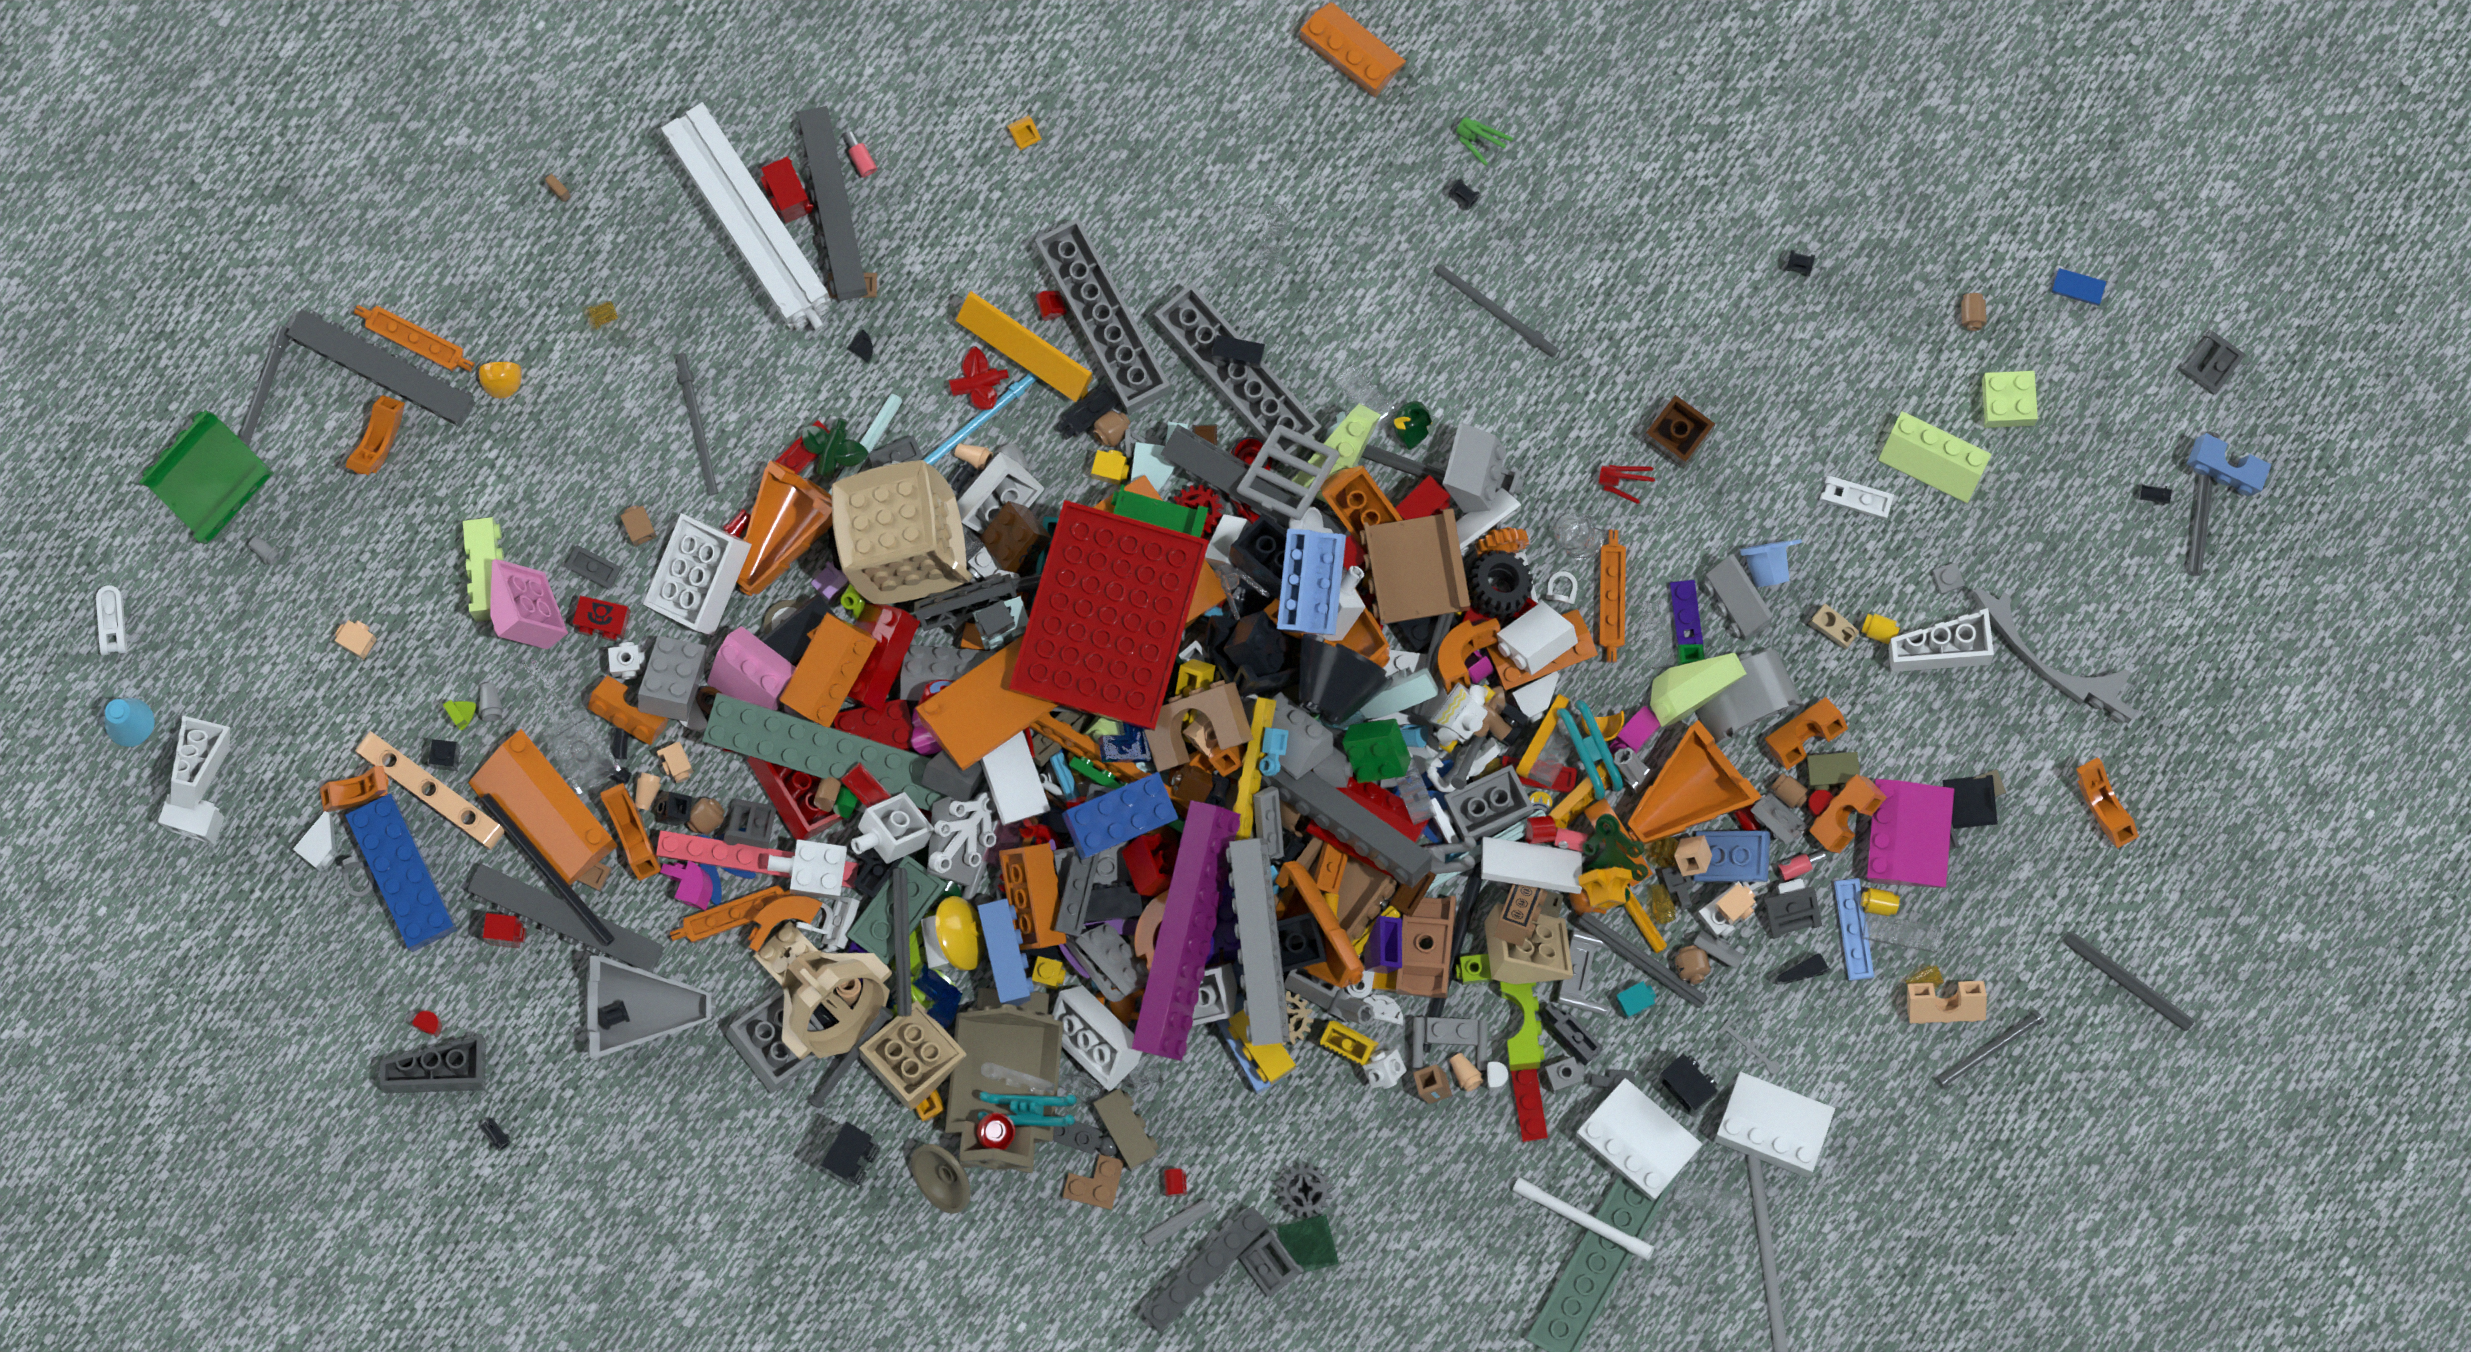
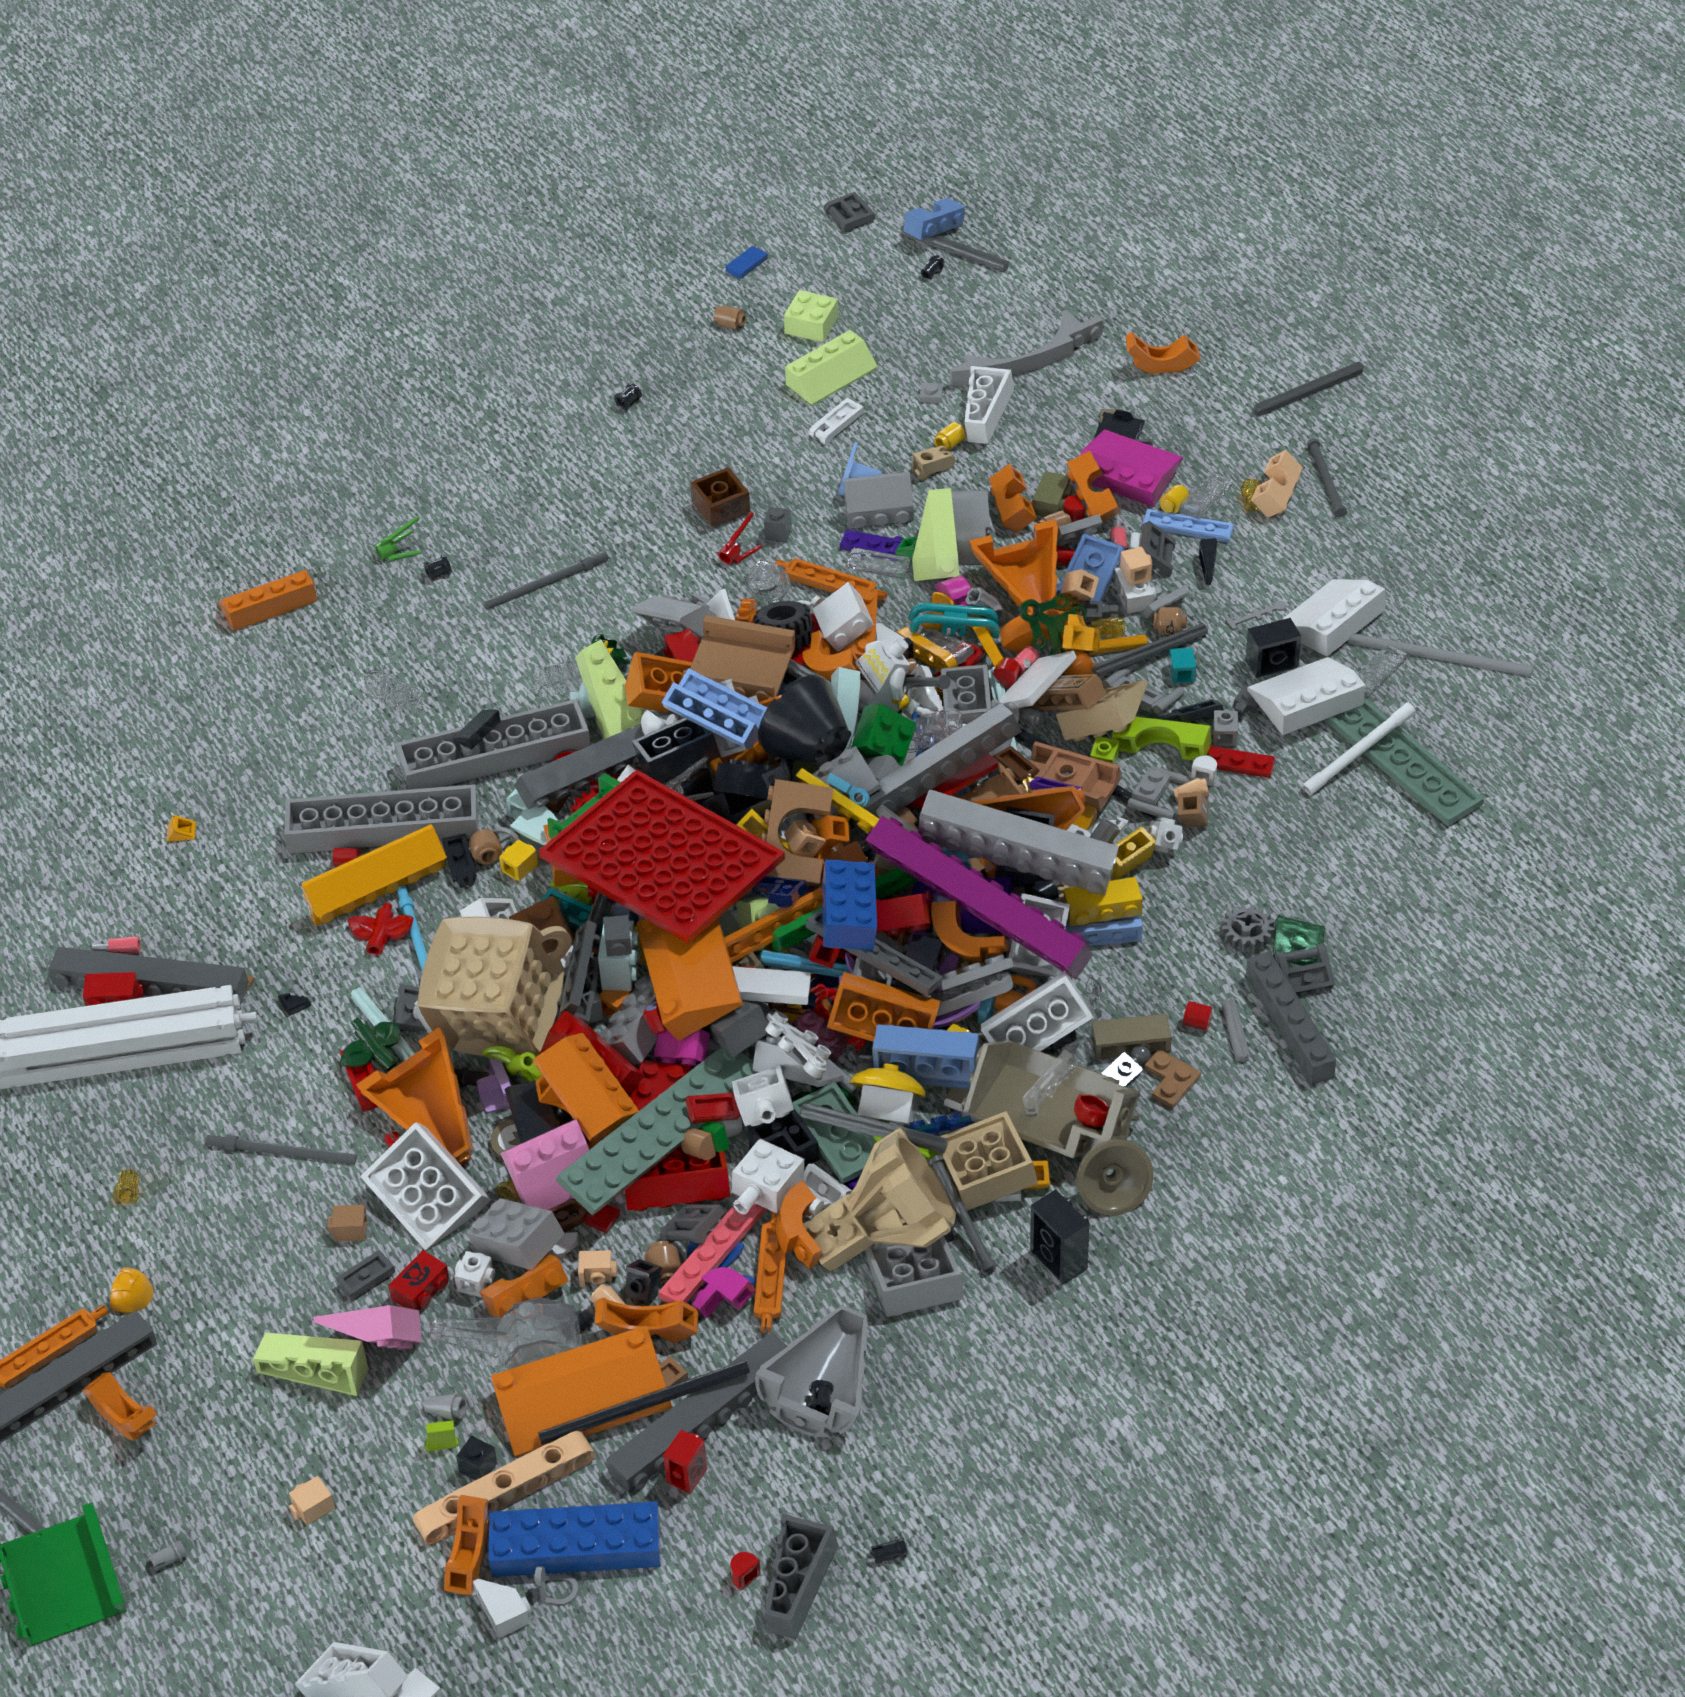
camera: 70 degrees left, 30 degrees down
(1031, 1108) = (1082, 1079): teal piece -> none
(1307, 493) = (586, 698): light grey bar -> none
(1666, 508) = (777, 524): none -> dark grey brick

